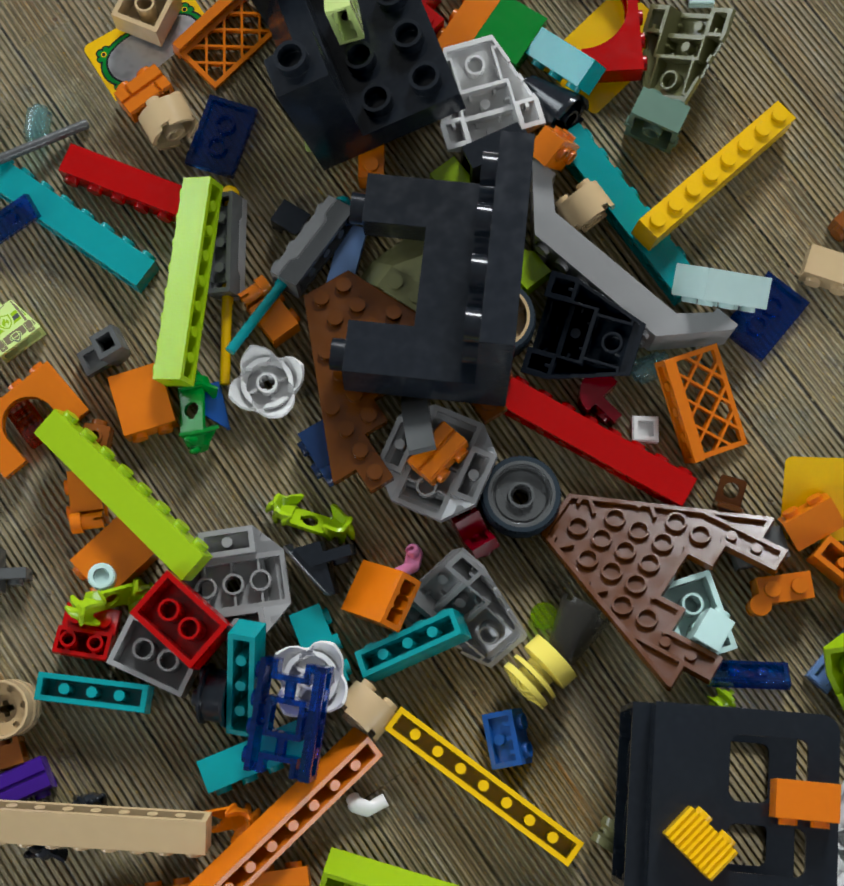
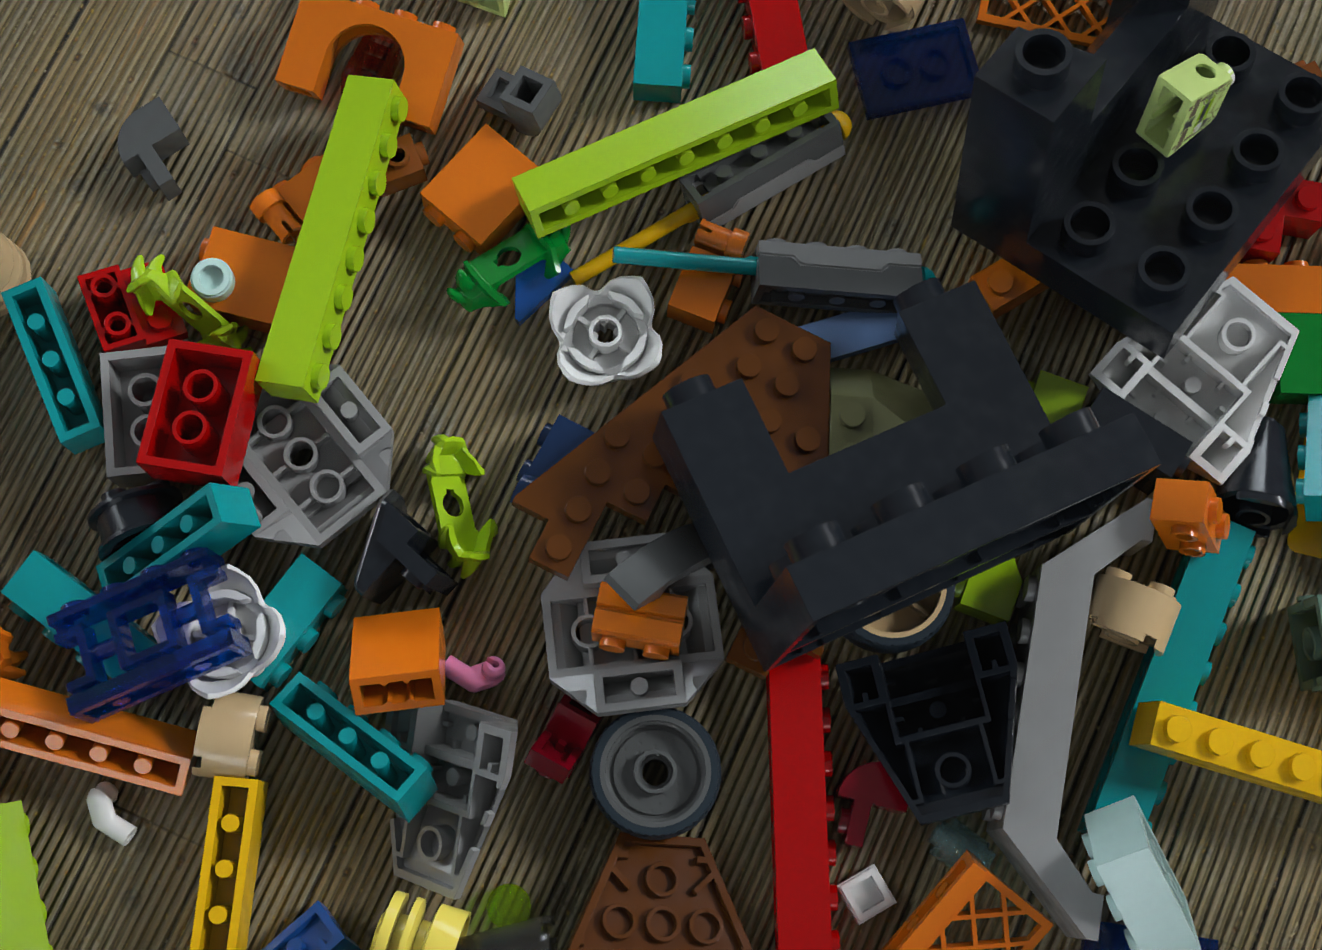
camera: 55 degrees right, 0 degrees up
(289, 218) = (855, 222): black panel -> none

